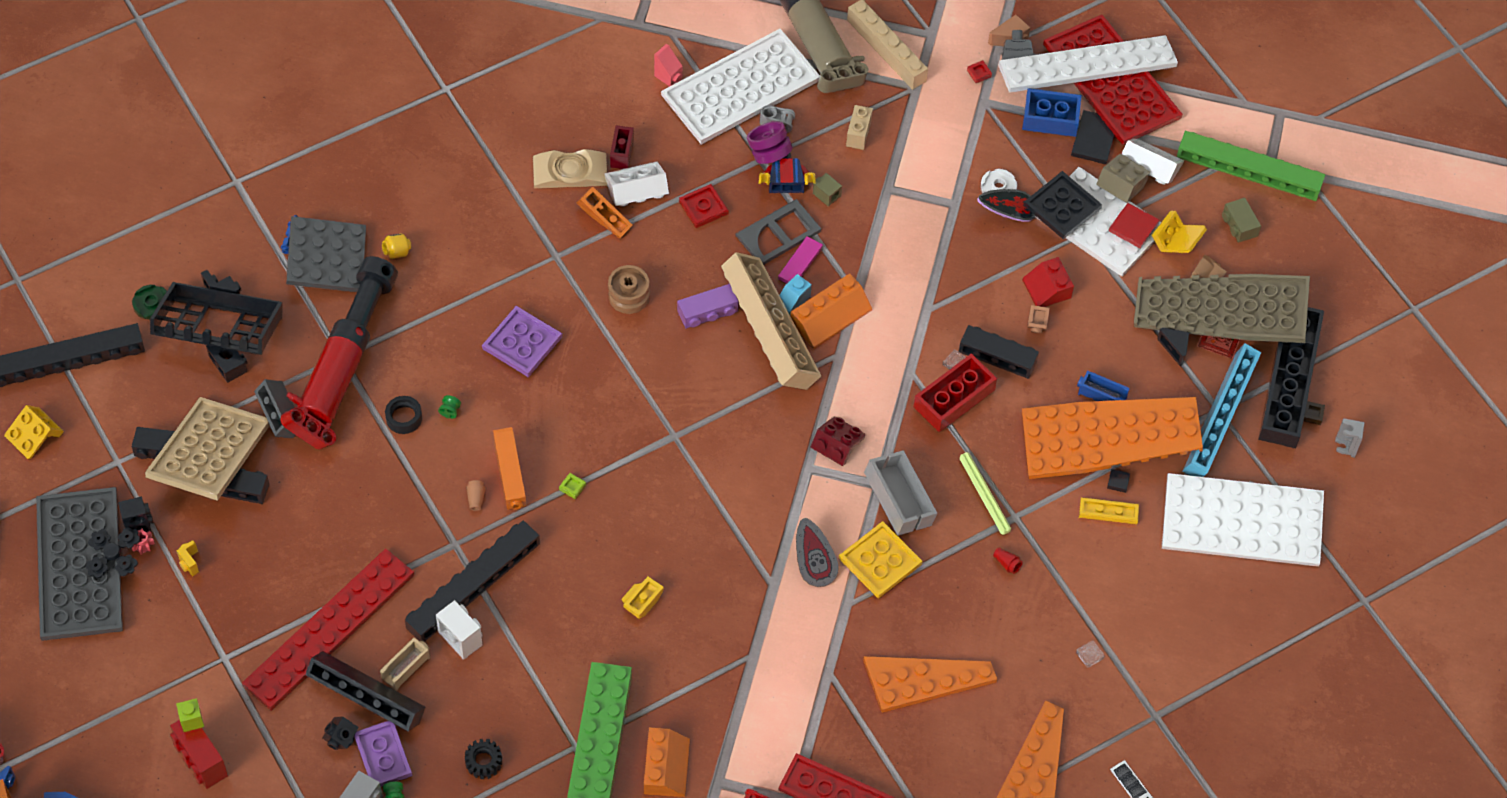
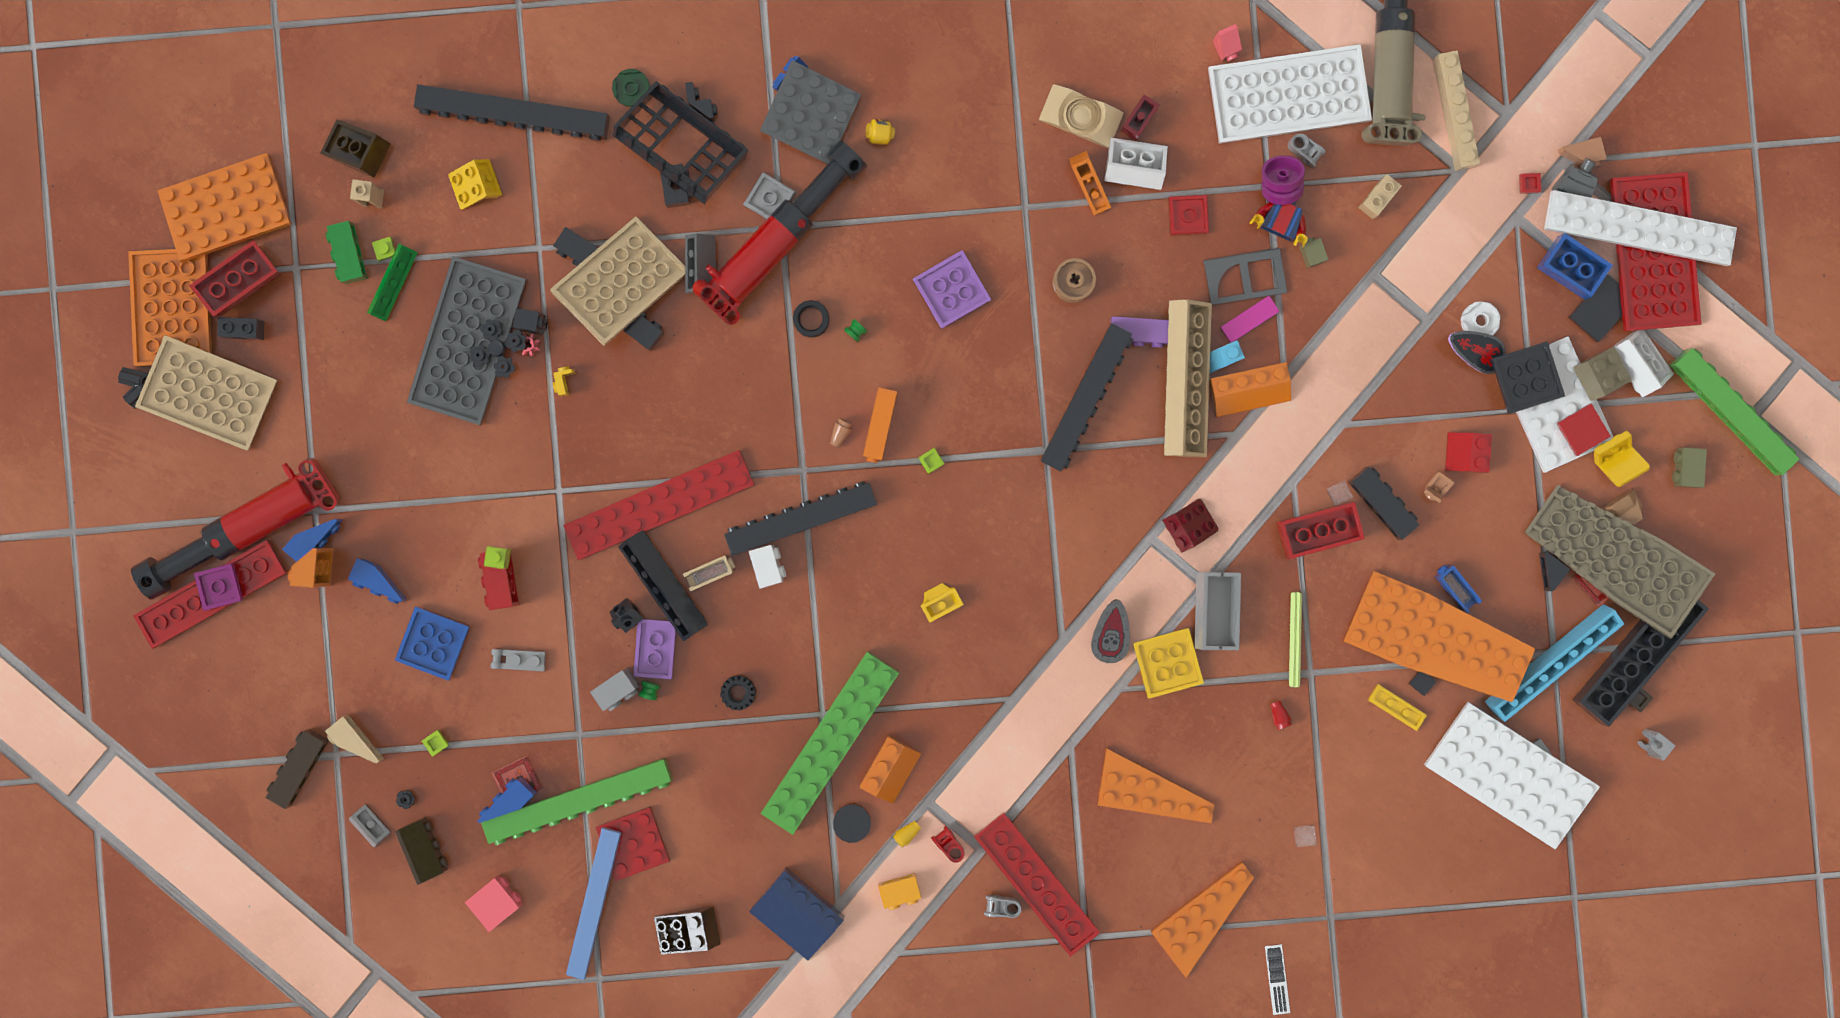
camera: 25 degrees right, 30 degrees up
(314, 336) = (767, 195): none -> light grey tile
(687, 372) = (1086, 396): none -> black brick

